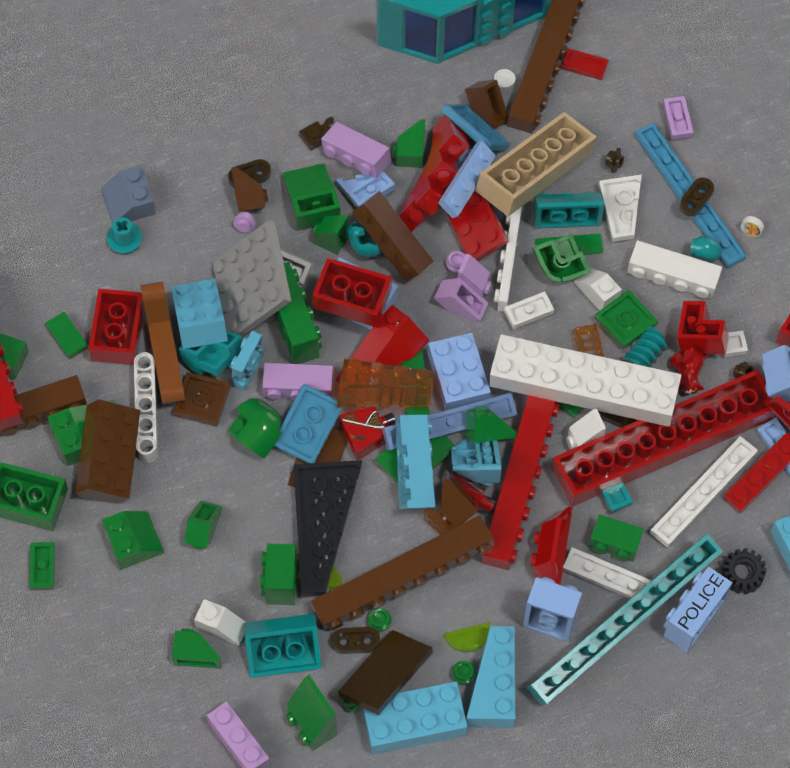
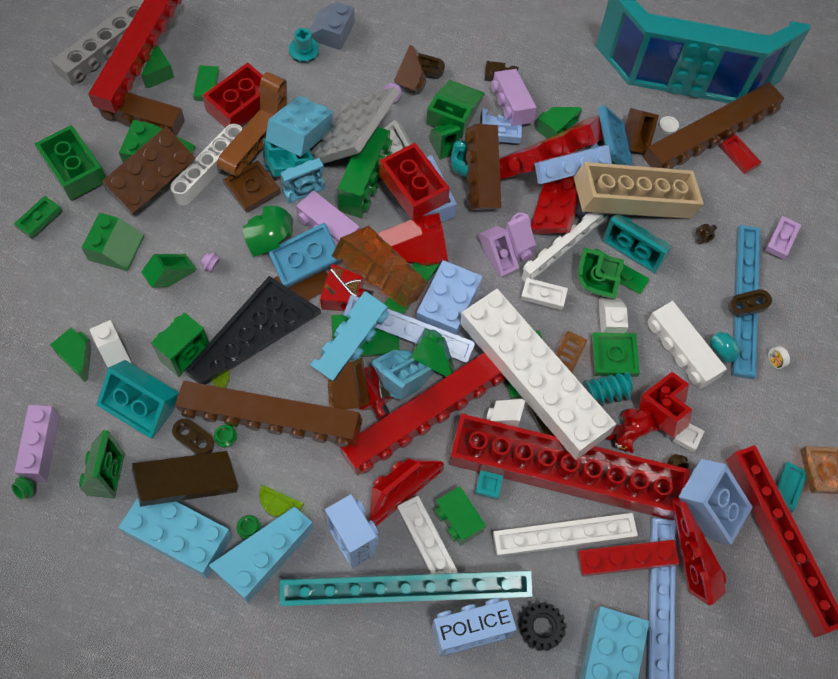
camera: 35 degrees right, 0 degrees up
(231, 490) = (210, 261): none -> lavender plate
(621, 205) = (683, 269): white wing -> none

